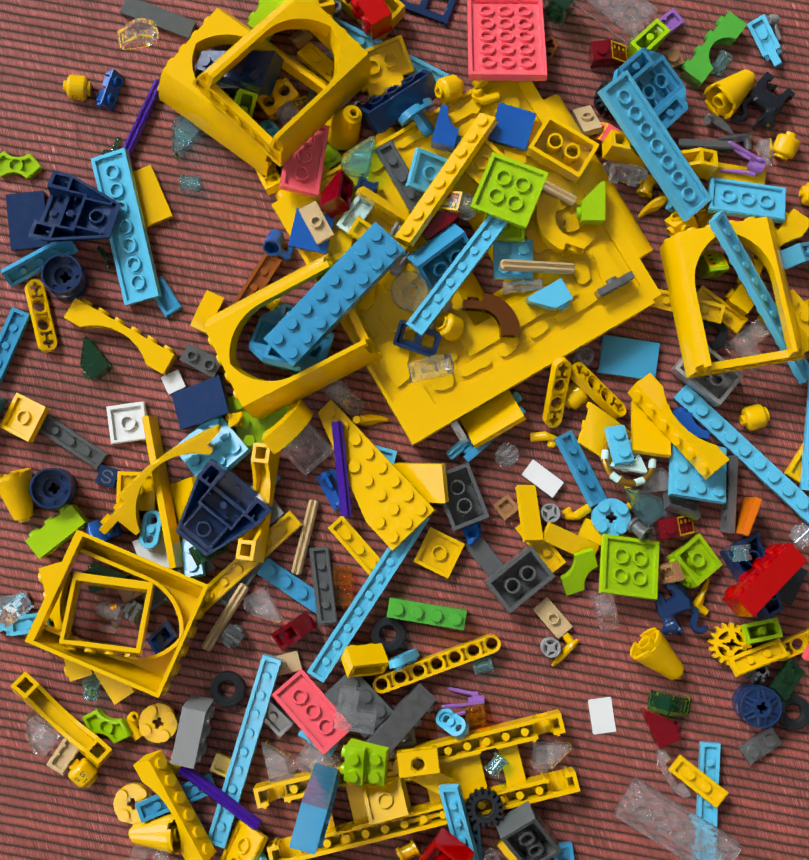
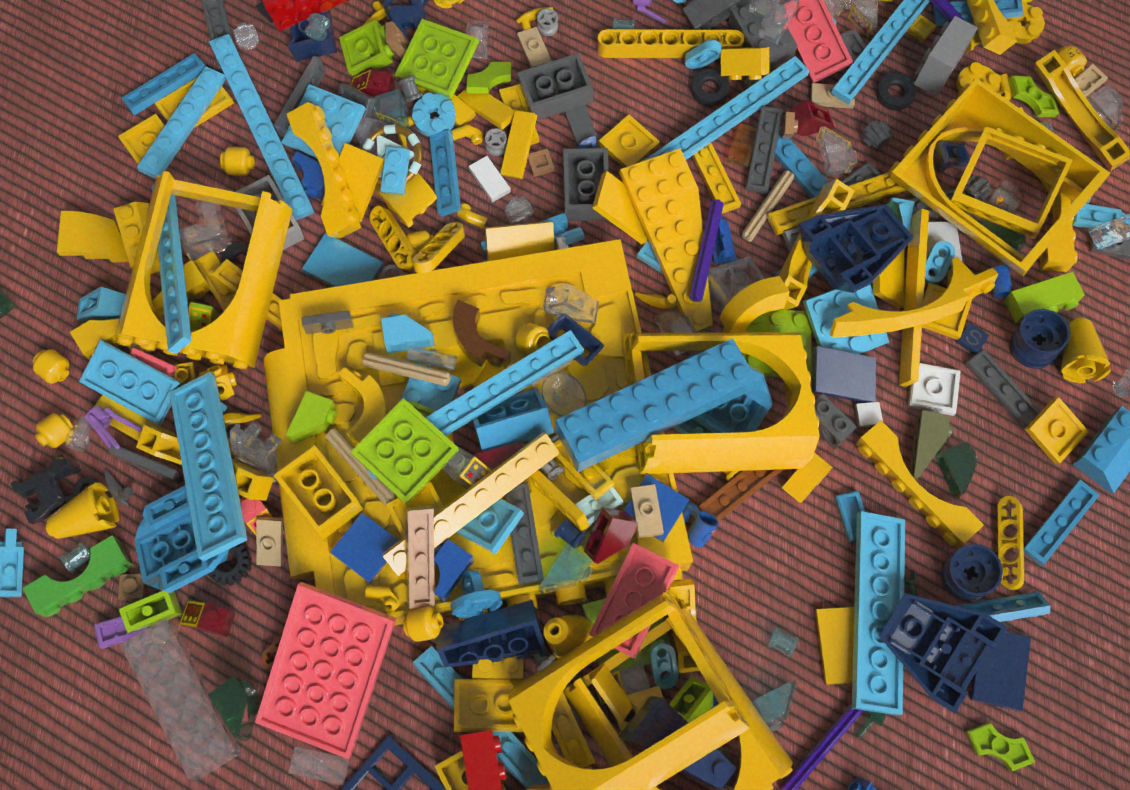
camera: 165 degrees left, 15 degrees down
(121, 375) = (929, 436): none -> olive slope
(225, 617) = (879, 155): tan axle -> none
(234, 419) = (810, 341): yellow piece -> none
(298, 91) = (611, 692): none -> yellow slope
(307, 610) = (789, 125): none -> medium nougat plate
(426, 613) = (684, 98): bright green arch -> none
(468, 124) = (420, 556): none -> plate
(745, 137) = (102, 462): flat silver bar -> none
(747, 515) = (292, 66): orange tile -> none

